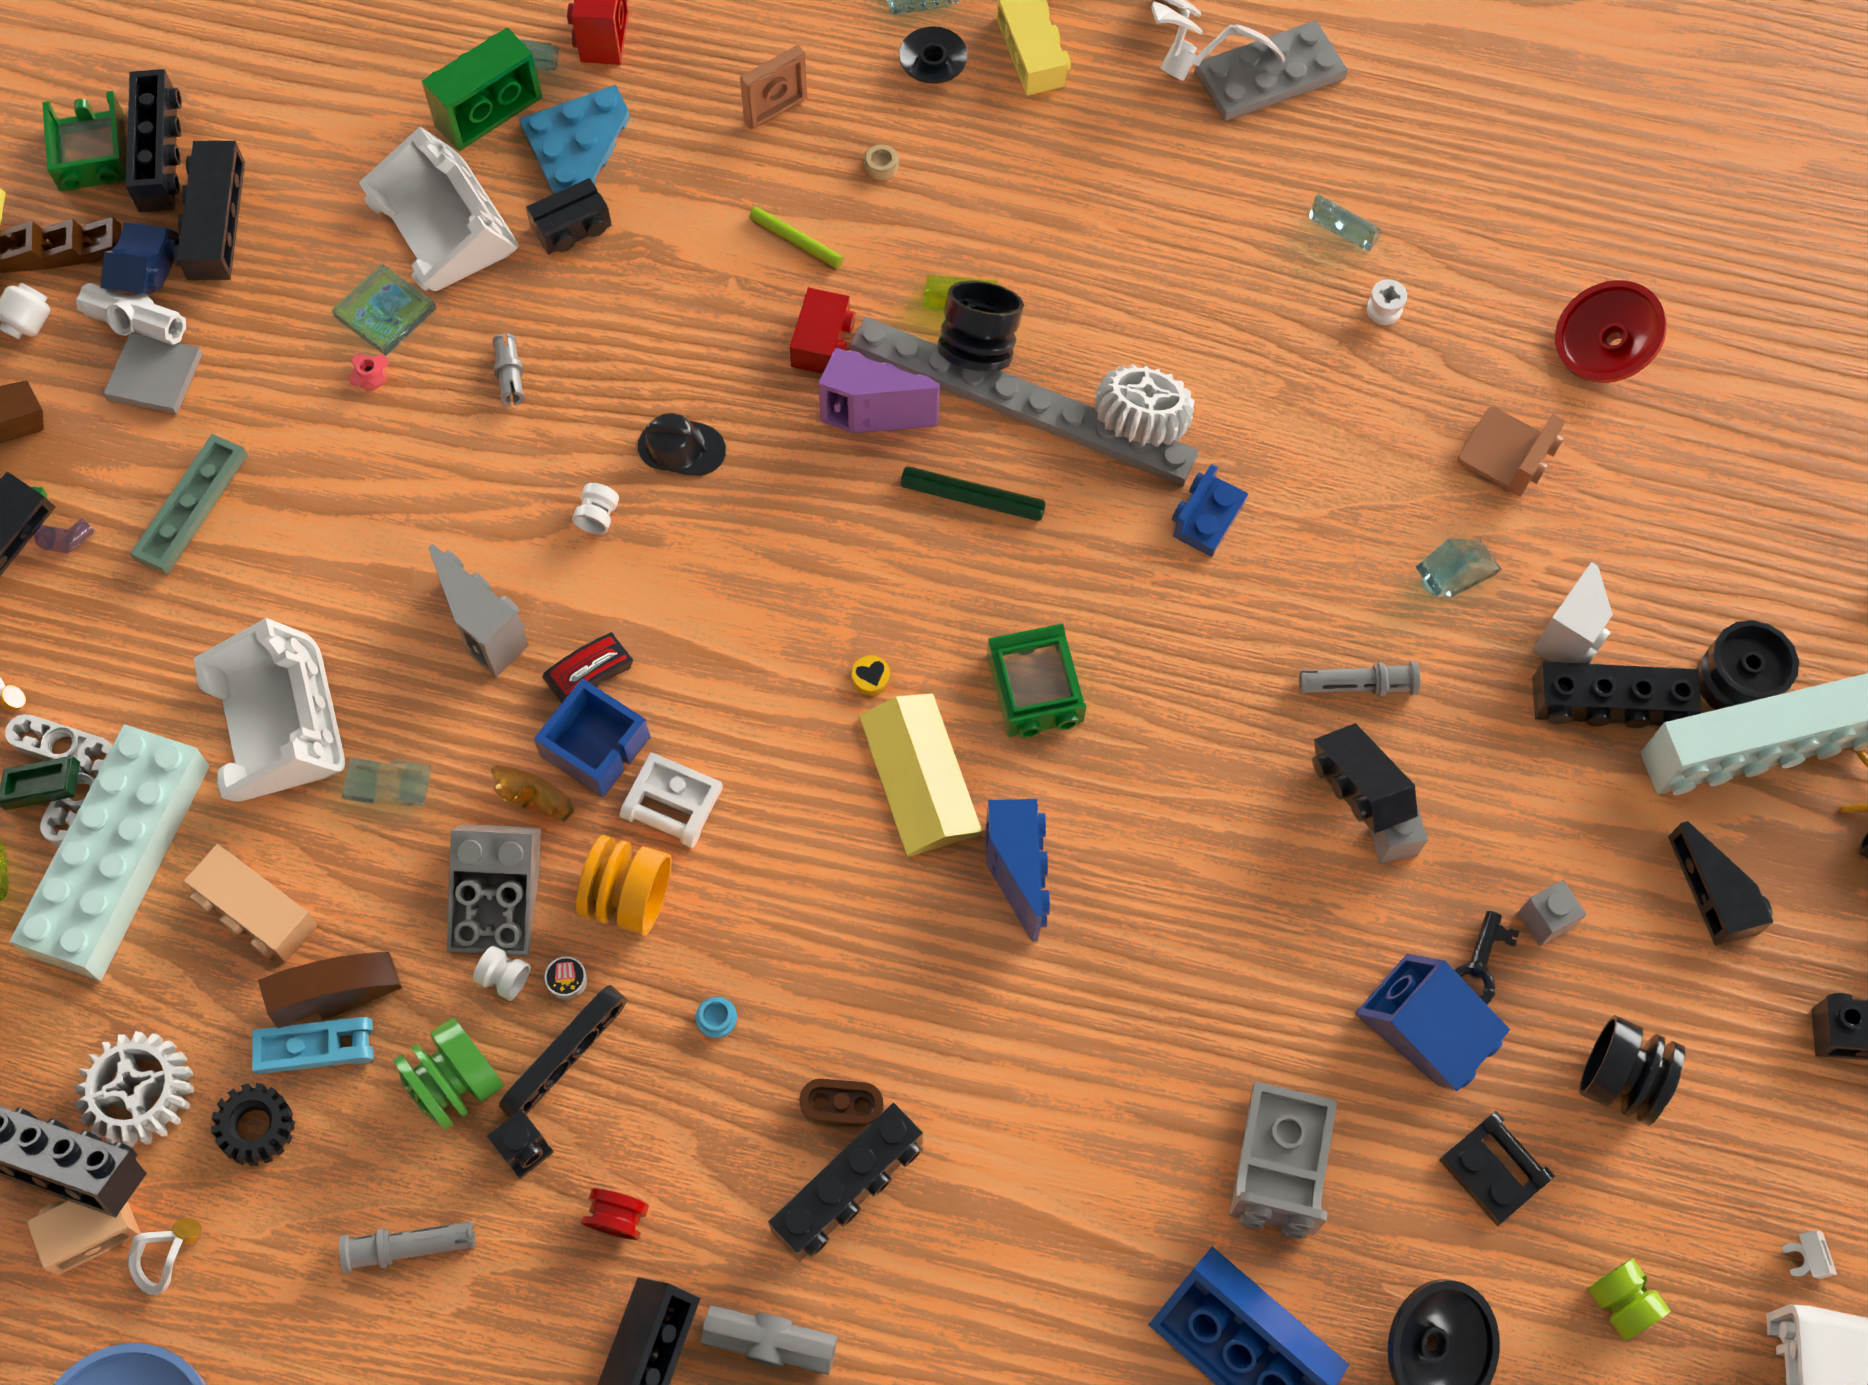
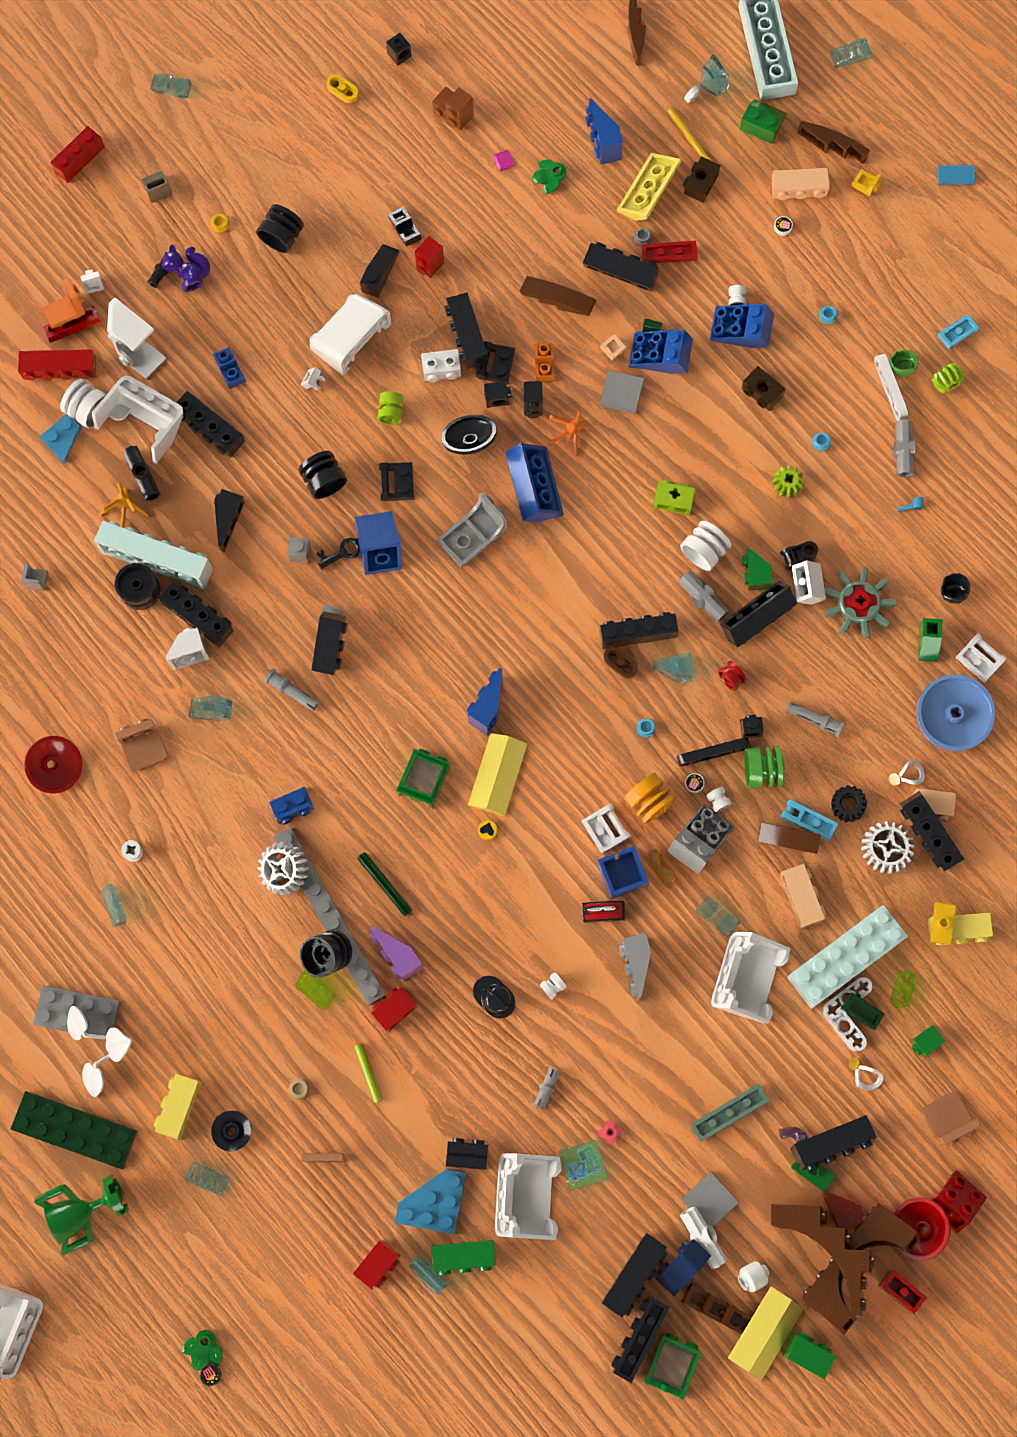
camera: 140 degrees left, 10 degrees up
(729, 1162) = (677, 668): none -> clear light blue slope

